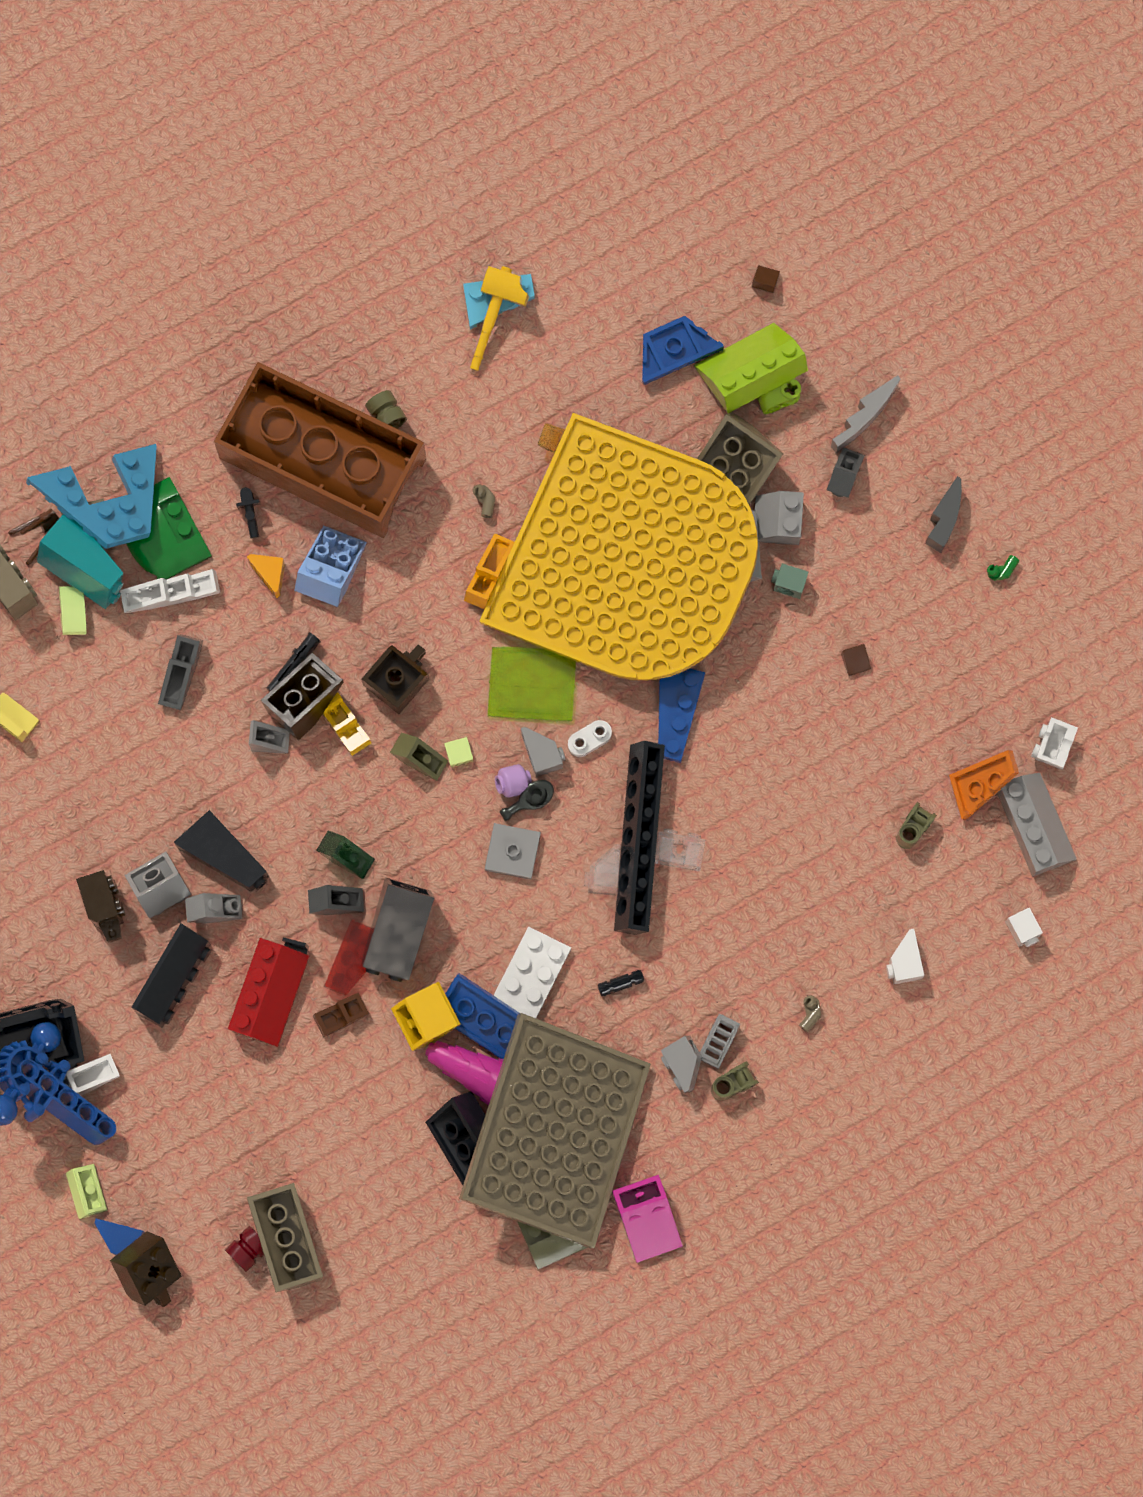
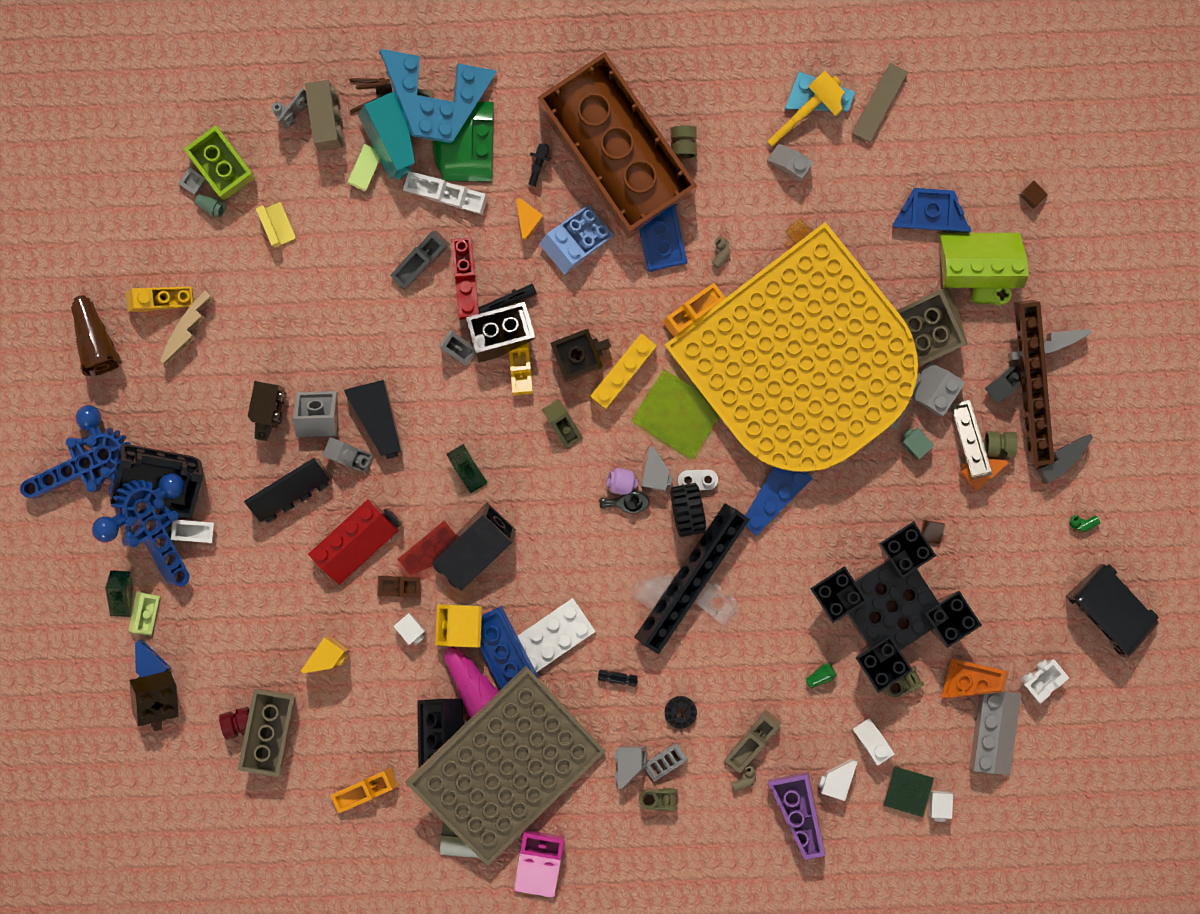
camera: 30 degrees right, 10 degrees up
(49, 1183) = (119, 593): none -> clear green slope
(236, 663) = (465, 277): none -> red slope
(305, 1125) = (326, 656): none -> yellow slope
(335, 900) = (441, 499): dark grey slope -> none
(377, 1050) = (410, 629): none -> white brick
(420, 521) = (663, 241): none -> blue tile
(421, 1245) = (364, 790): none -> light orange slope
(452, 670) = (623, 371): none -> yellow brick
(458, 752) = (594, 436): yellowish green tile -> none
(505, 375) = (790, 162): none -> light grey slope
(512, 851) = (592, 534): light grey plate -> none
(561, 272) = (879, 103): none -> dark tan tile
(596, 769) = (688, 510): none -> black tyre
(710, 992) = (690, 713): none -> black gear
(796, 970) = (752, 741): none -> dark tan slope
(828, 864) = (821, 675): none -> green cone
(842, 546) = (970, 439): none -> tile
(845, 718) = (946, 617): none -> black slope
(869, 573) = (976, 484): none -> orange slope
(871, 455) = (1034, 382): none -> reddish brown brick
(873, 536) = (1001, 444): none -> olive wheel
(882, 1010) = (799, 809): none -> medium lavender wedge
(919, 901) = (873, 741): none -> white slope
(984, 933) = (908, 791): none -> clear green tile
(1083, 635) = (1114, 609): none -> black windscreen

